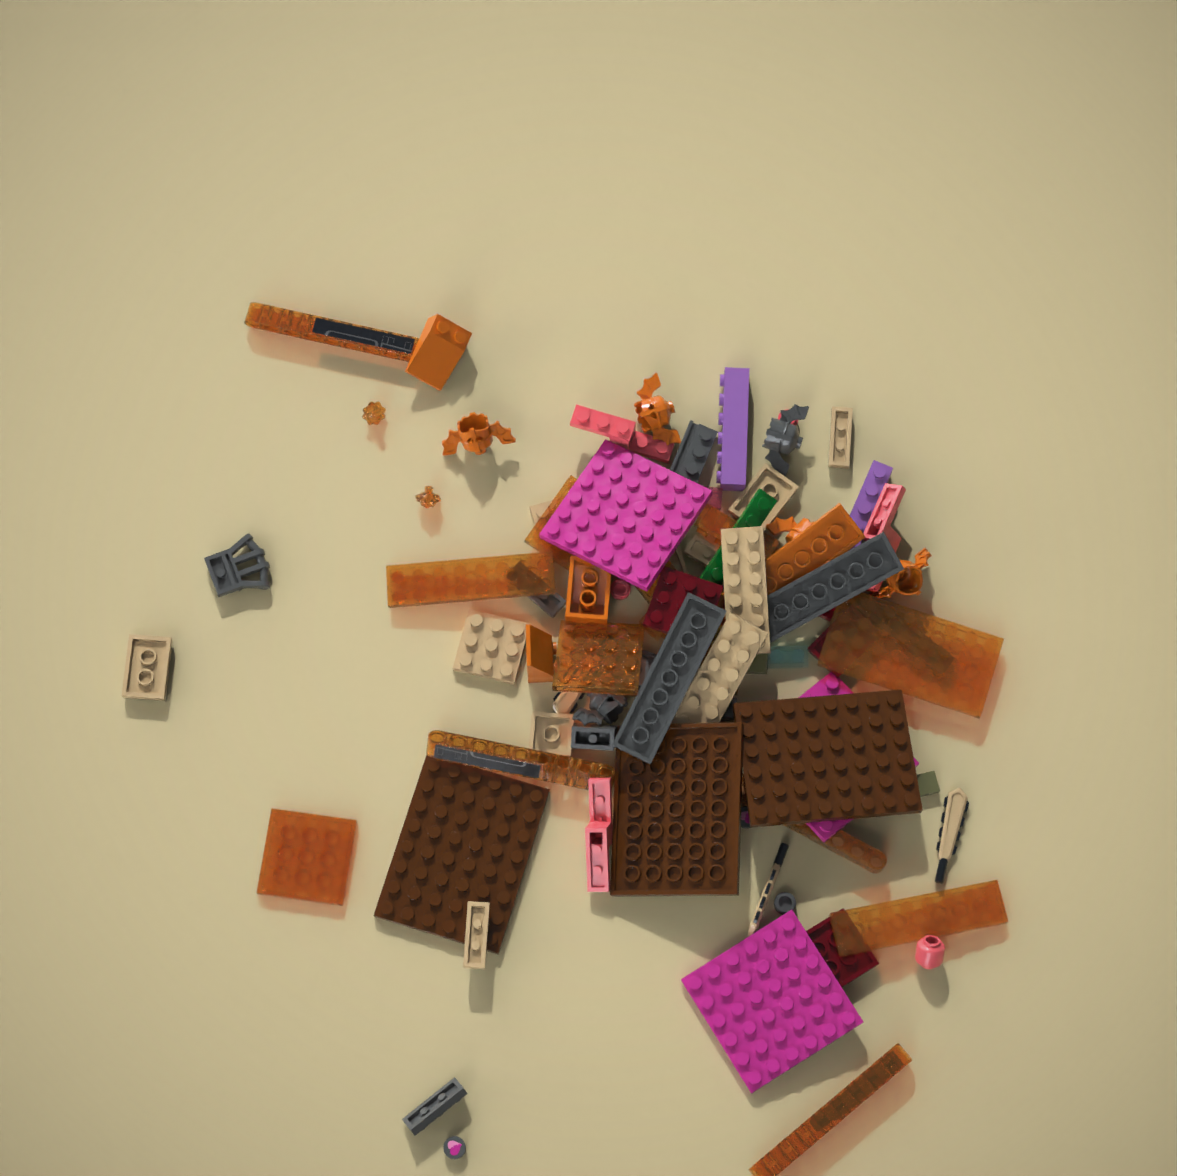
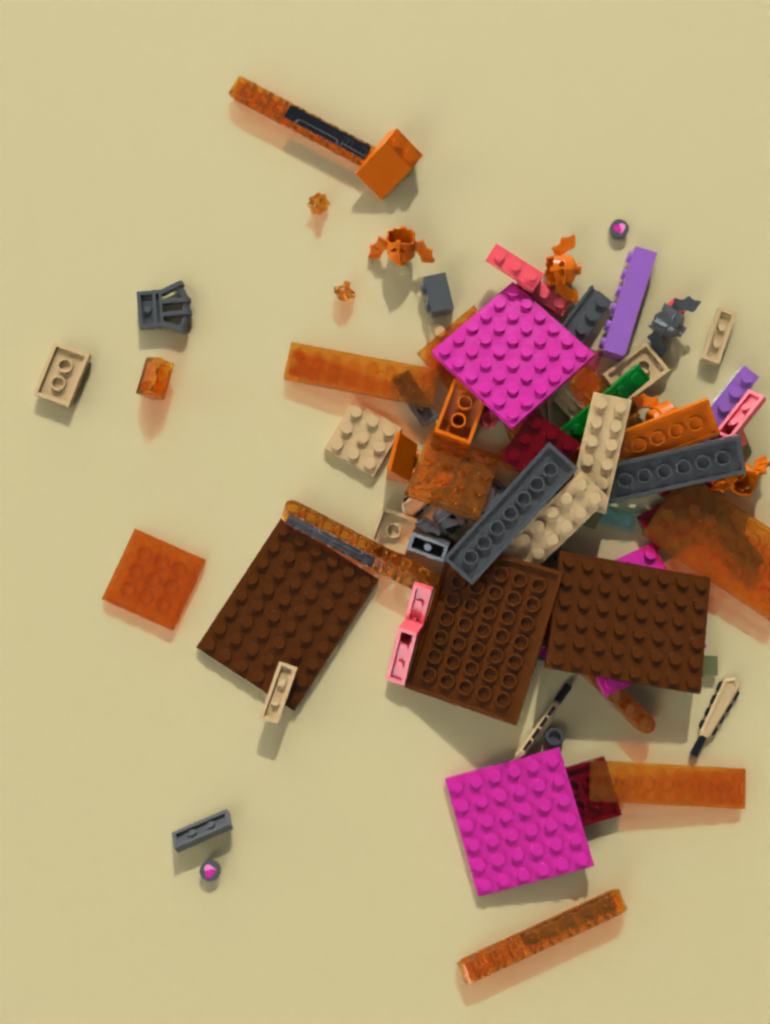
camera: 10 degrees right, 10 degrees up
(250, 643) = (155, 378): none -> clear orange brick
(528, 474) = (437, 295): none -> dark grey brick
(703, 354) = (618, 229): none -> dark grey tile
(930, 952) = (669, 818): coral head -> none

